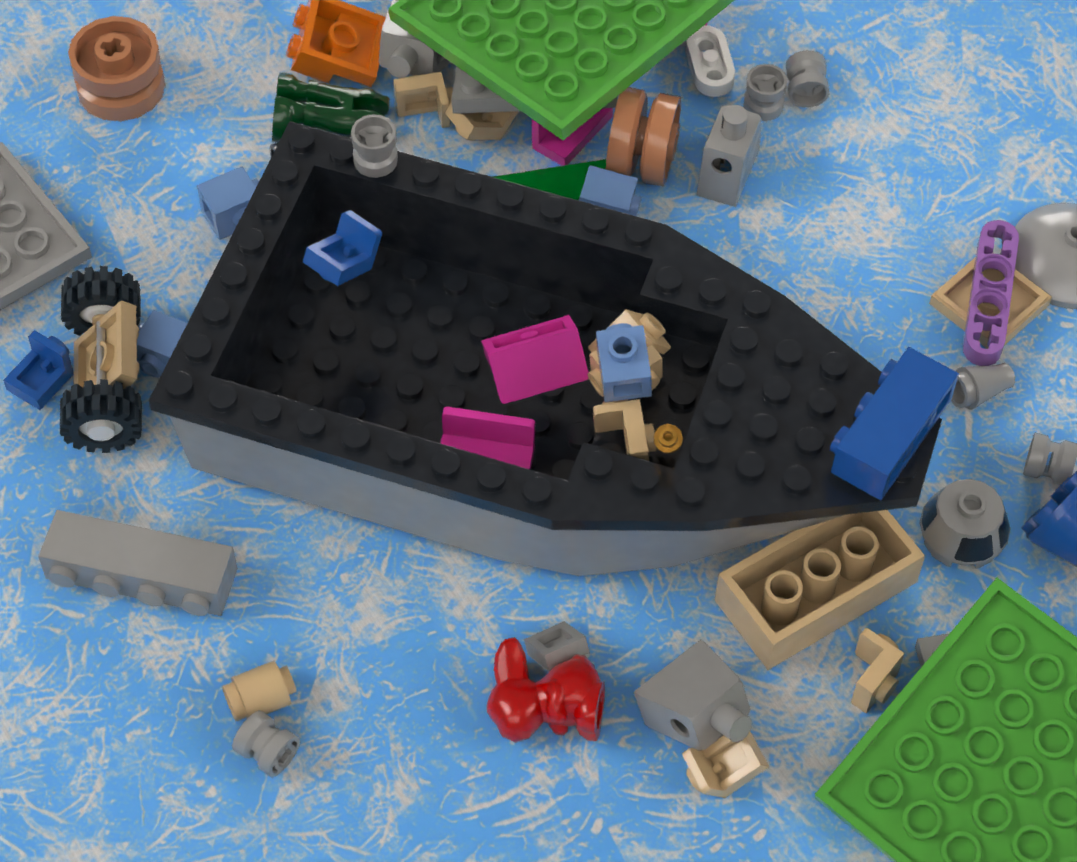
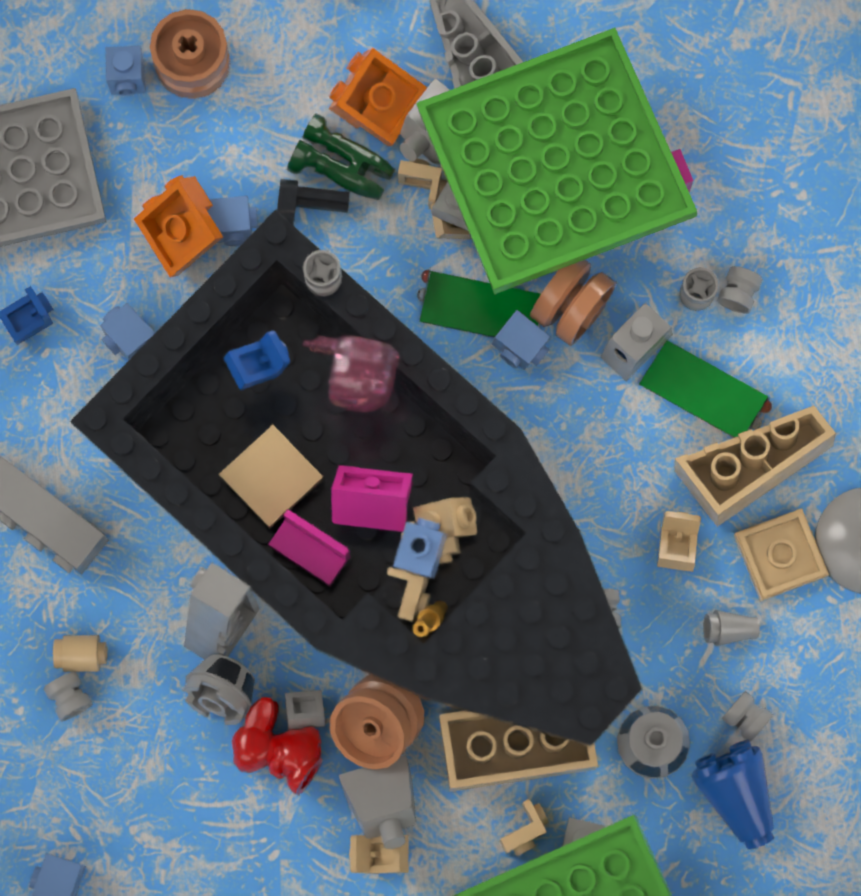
camera: 25 degrees right, 20 degrees up
(51, 107) = (125, 70): none -> medium blue brick
(101, 403) = (73, 330): plate -> none
(178, 218) = (179, 224): none -> orange plate
(406, 394) = (271, 476): none -> tan tile
(411, 558) = (218, 612): none -> light grey wedge
(448, 658) = (220, 687): none -> light grey cone
(467, 208) = (360, 373): none -> clear pink piece
(645, 639) = (376, 723): none -> nougat wheel
(713, 69) = (672, 241): white plate -> none
(824, 181) = (705, 391): none -> green piece
(876, 320) = (678, 541): none -> tan bracket
(892, 422) = (594, 685): blue brick -> none
(910, 225) = (745, 468): none -> tan wedge
(992, 292) = (782, 556): medium lavender beam -> none

